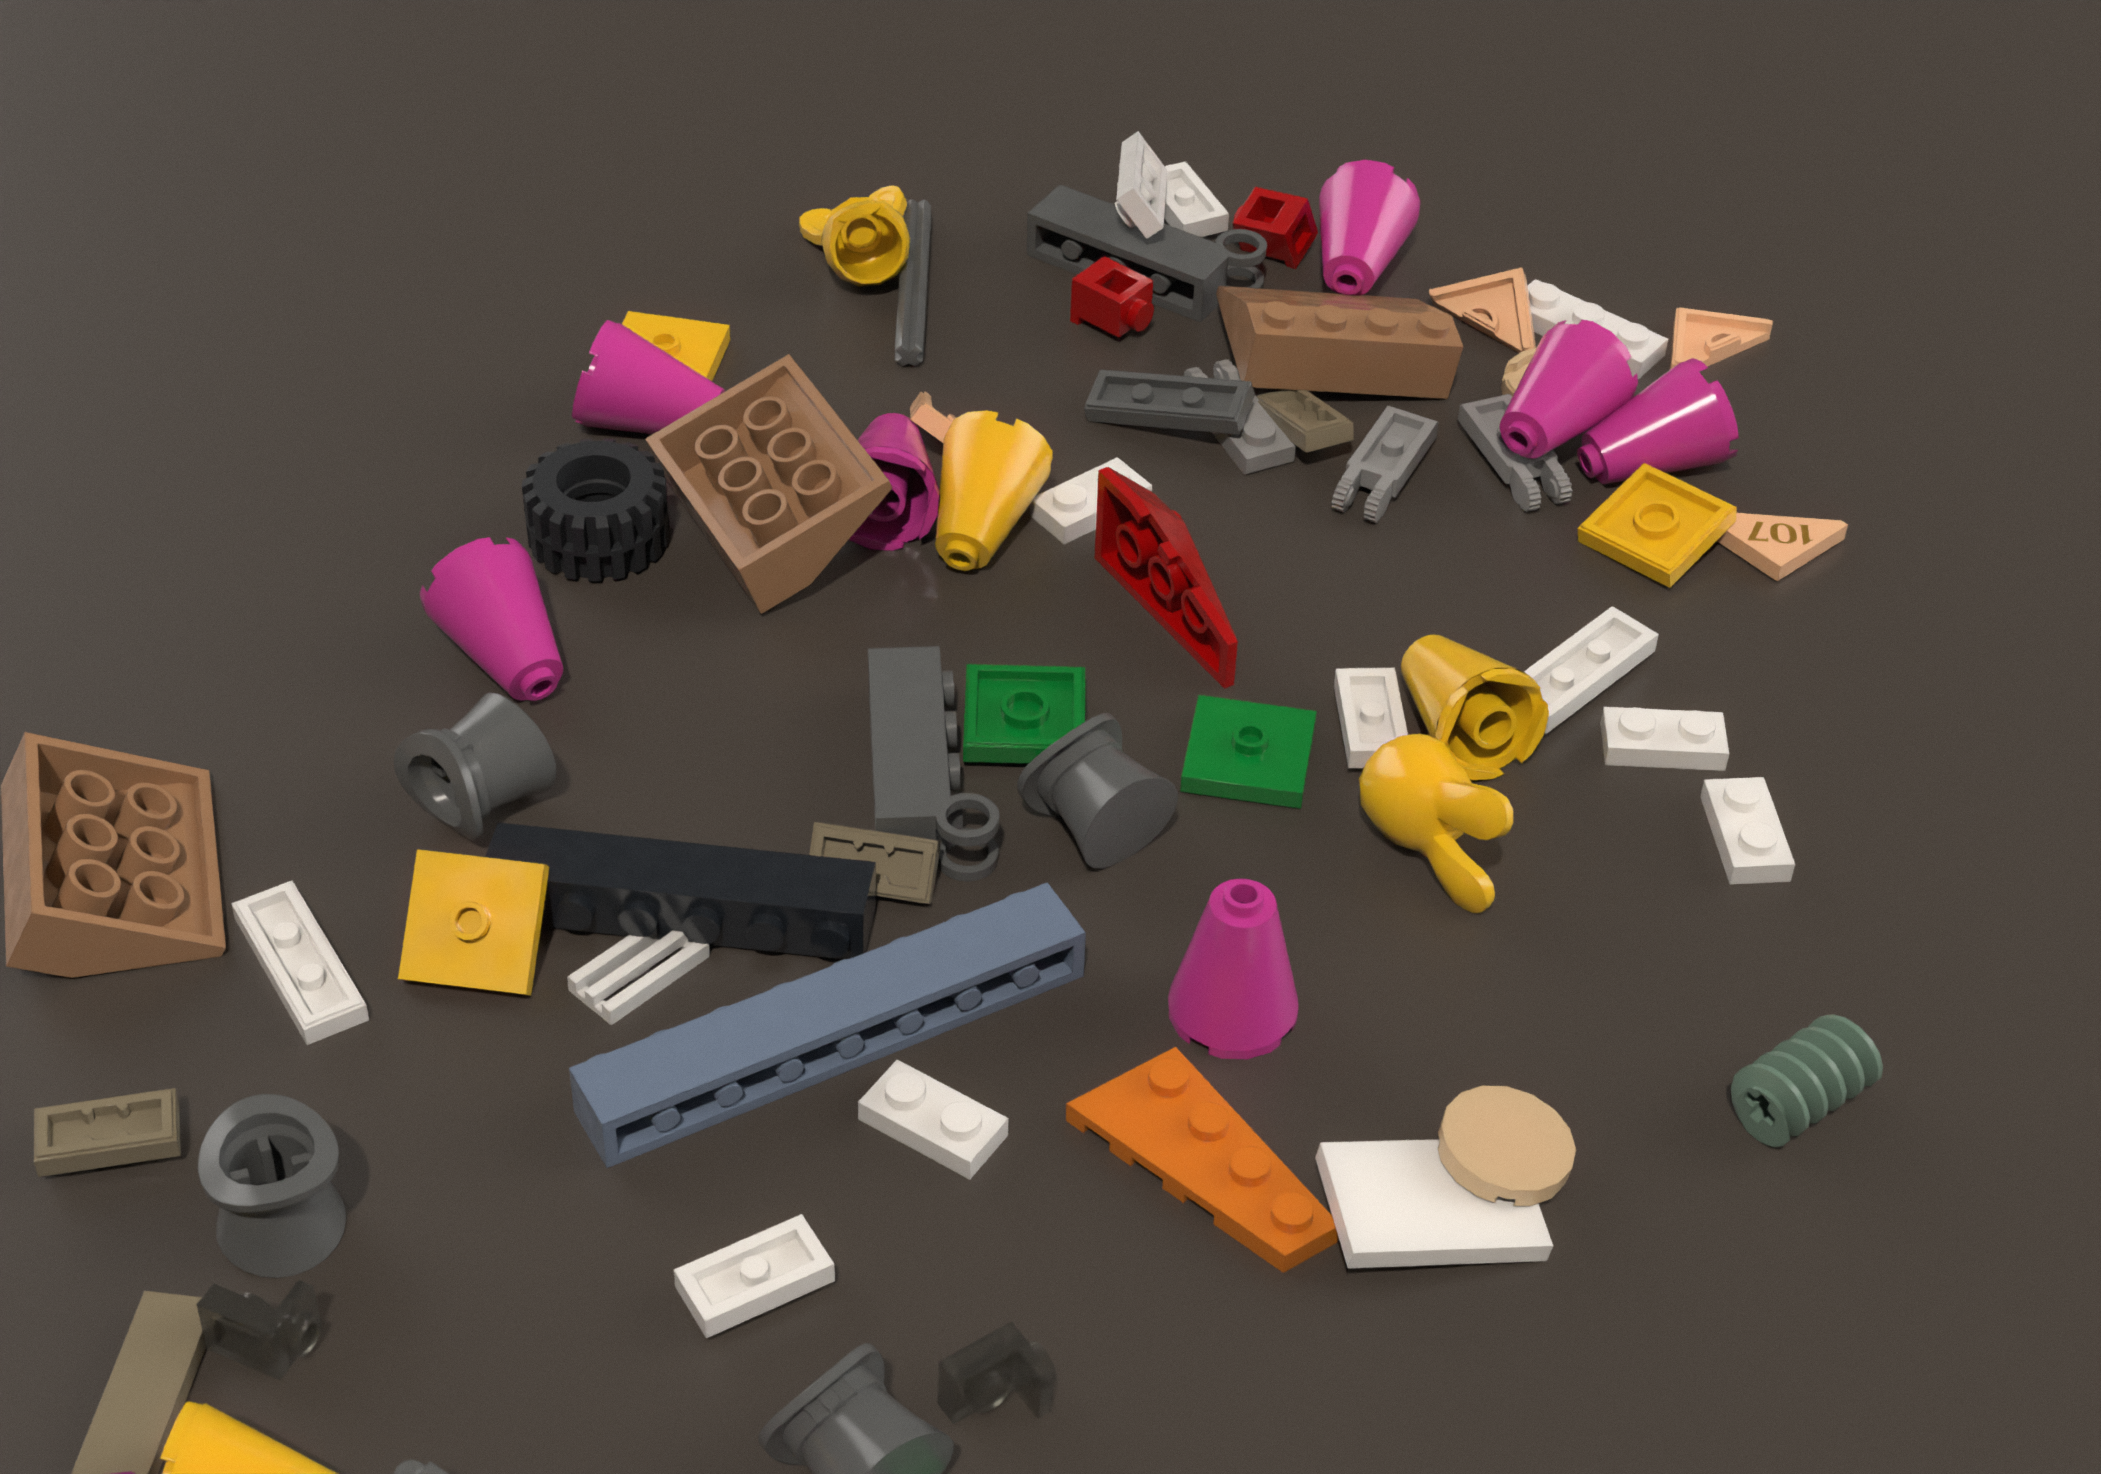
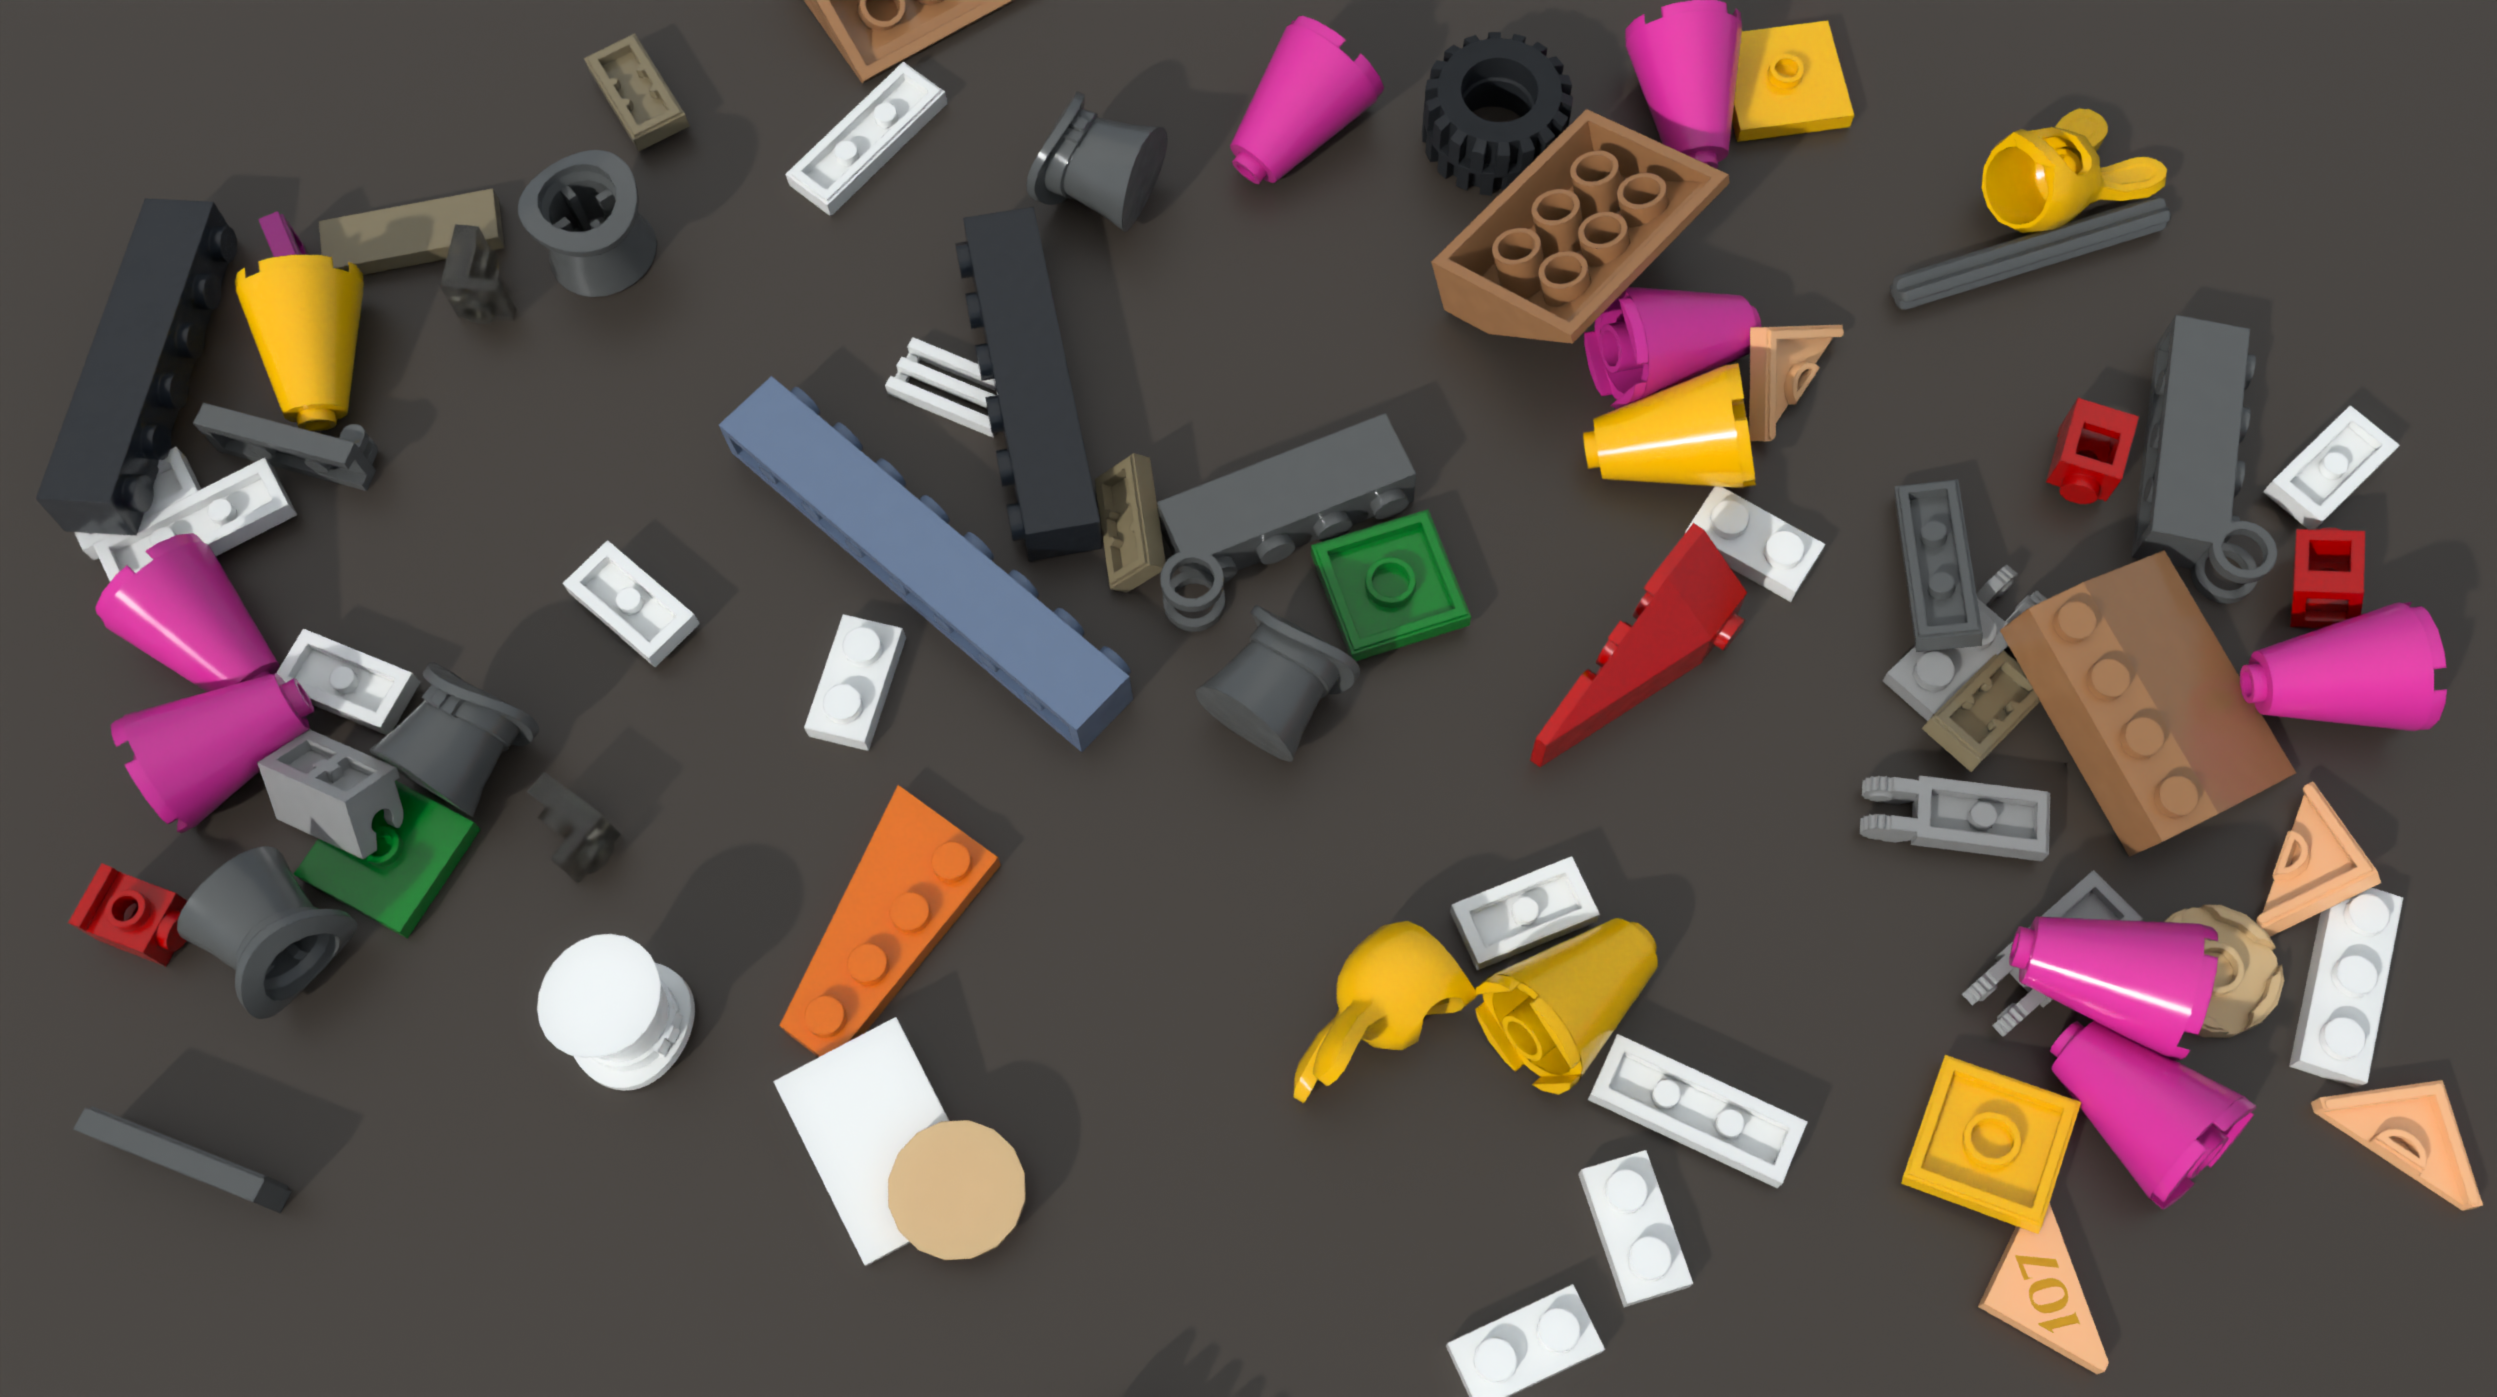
camera: 75 degrees right, 25 degrees up
(473, 922) = (923, 240): yellow plate -> none
(1141, 186) = (2274, 409): white plate -> none
(1234, 1362) = (616, 1011): none -> white hat
(1235, 975) = (1084, 890): dark pink cone -> none
(1248, 751) = (1434, 809): green plate -> none

